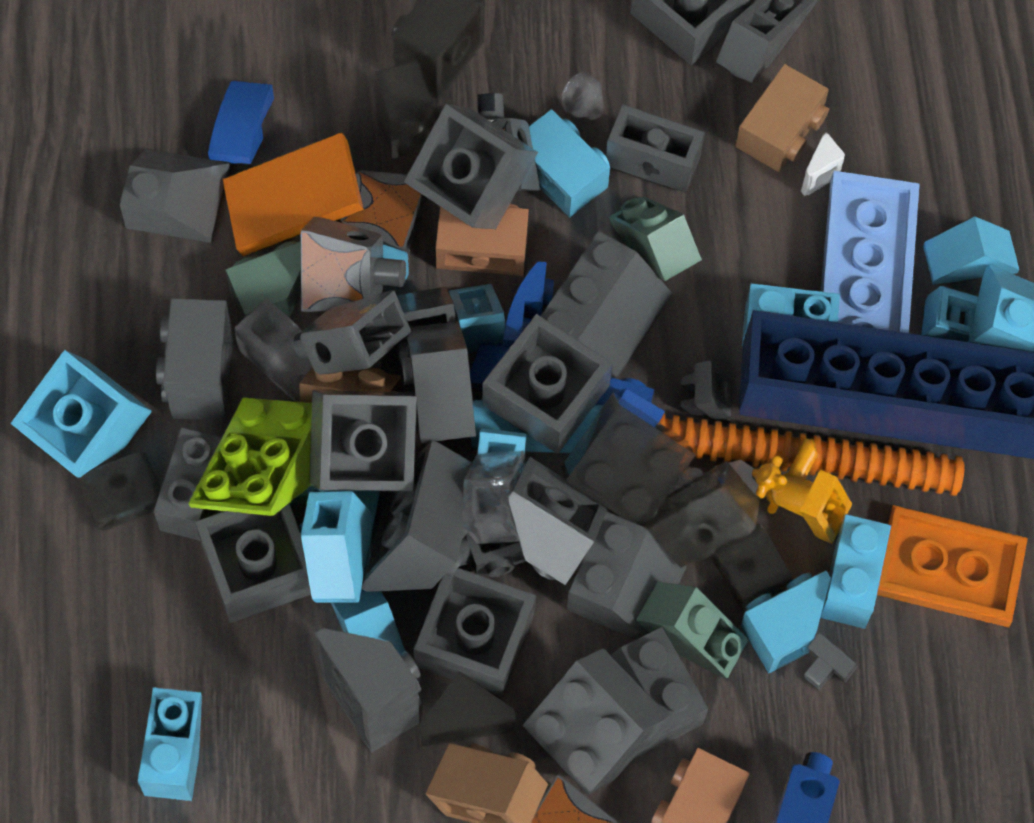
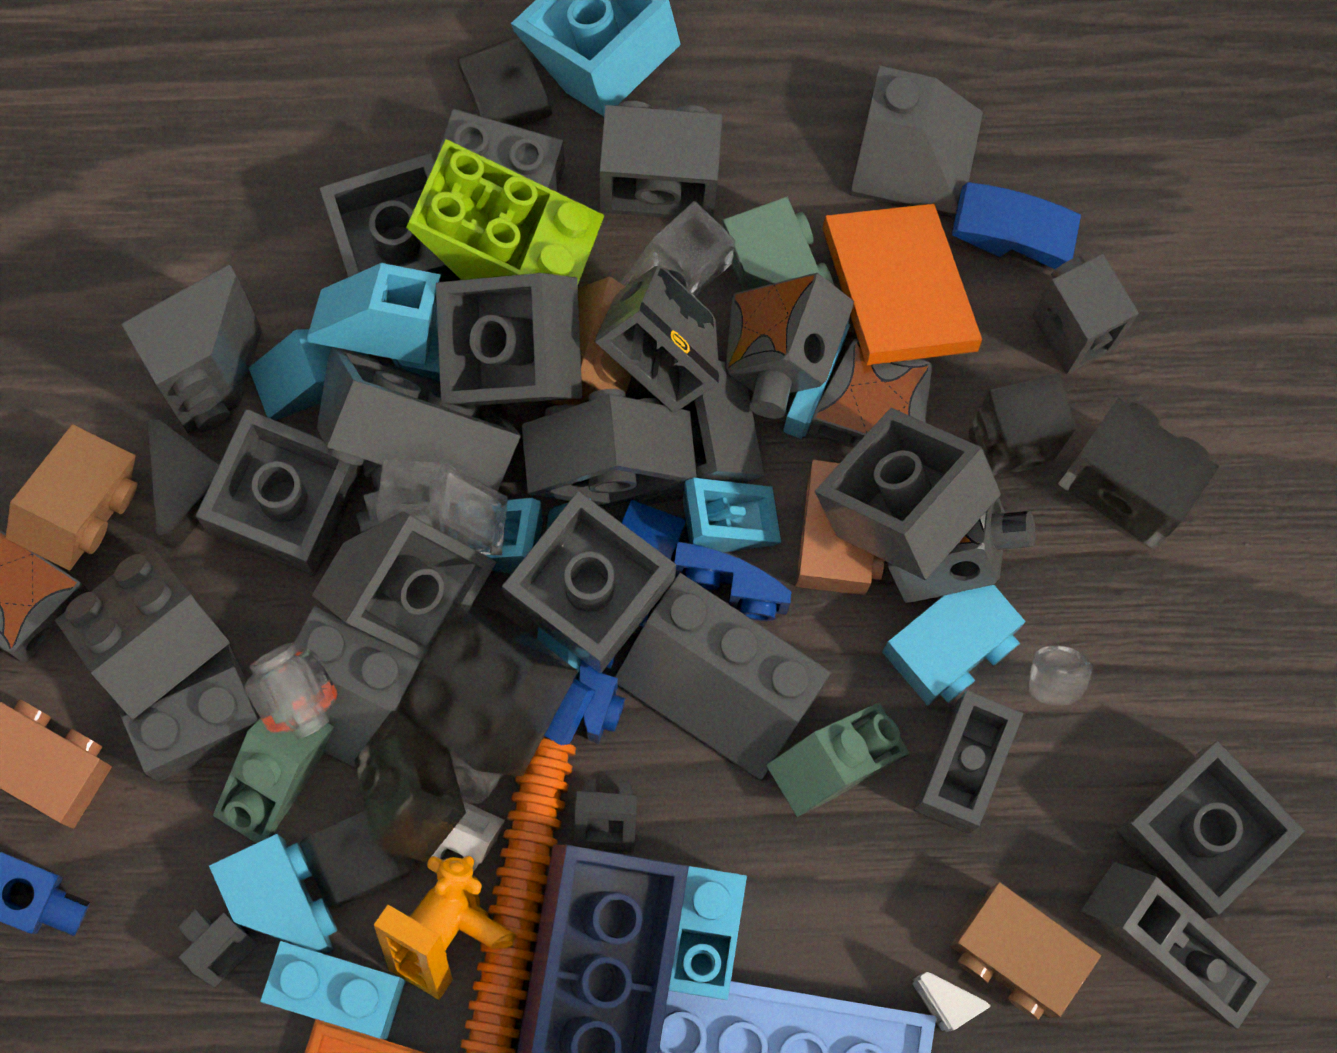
camera: 90 degrees right, 10 degrees up
(171, 744) = (161, 137): medium azure slope -> none
(316, 70) = (1084, 311): none -> dark grey brick
(640, 596) = (291, 690): none -> clear head

